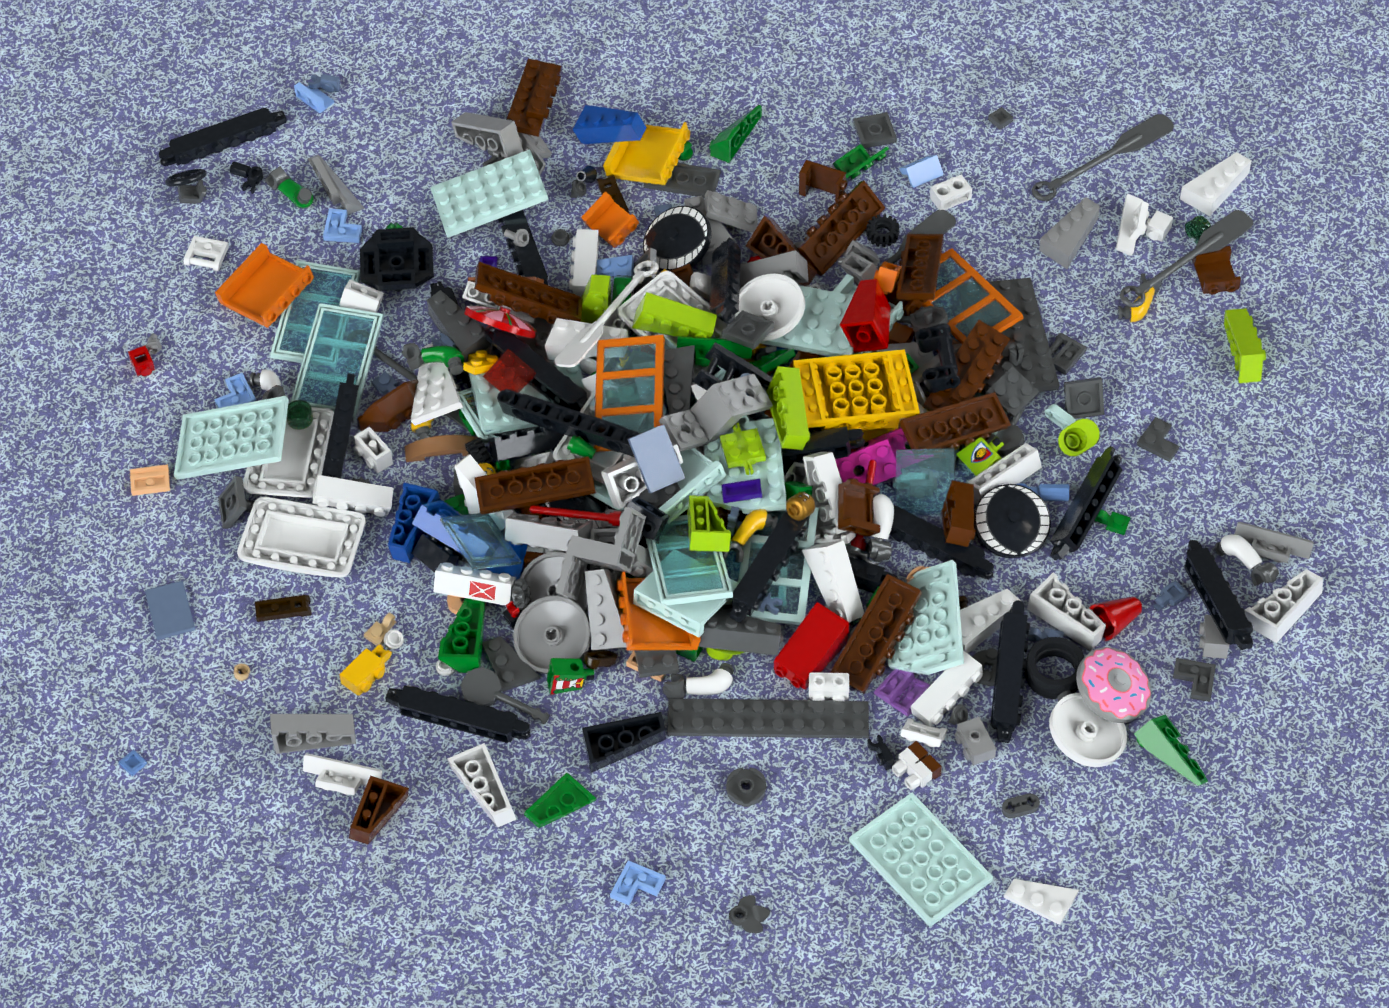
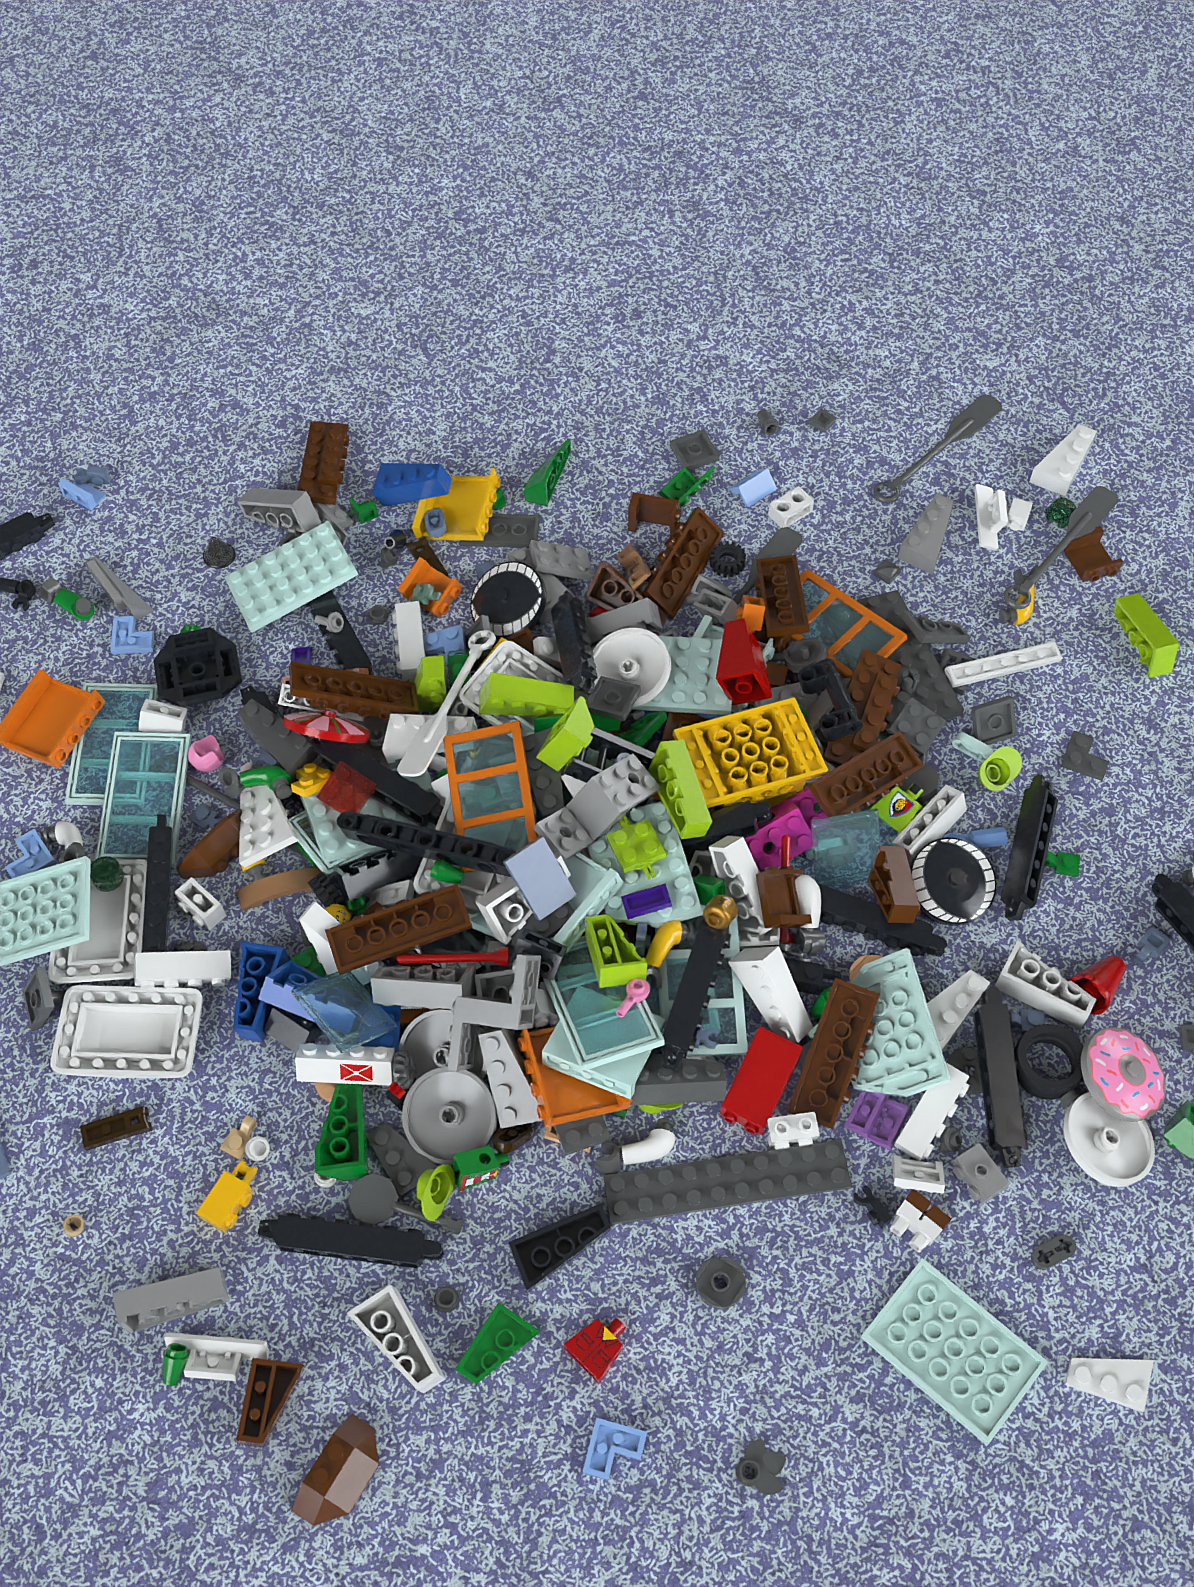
camera: 10 degrees left, 5 degrees up
(308, 776) = (173, 1363): none -> green cone
(393, 333) = (206, 754): none -> bright pink hair
(422, 868) = (339, 1473): none -> reddish brown wedge
(427, 166) = (218, 554): none -> clear smoke hat
(526, 766) = (446, 1299): none -> dark grey plate
(531, 685) = (434, 1189): none -> lime piece
(563, 146) = (365, 511): none -> green panel
(604, 223) = (424, 593): none -> sand green plate
(625, 164) = (435, 522): none -> sand blue plate
(637, 814) = (596, 1347): none -> red torso
(700, 352) = (567, 736): none -> lime slope
(718, 556) = (637, 991): none -> bright pink plate
(796, 223) = (634, 566): none -> medium nougat slope
(948, 113) = (767, 422): none -> dark grey cone
(1025, 260) = (887, 571): none -> dark grey tile
(1056, 318) = (935, 632): none -> dark grey wing
(1107, 353) = (1003, 664): none -> white tile

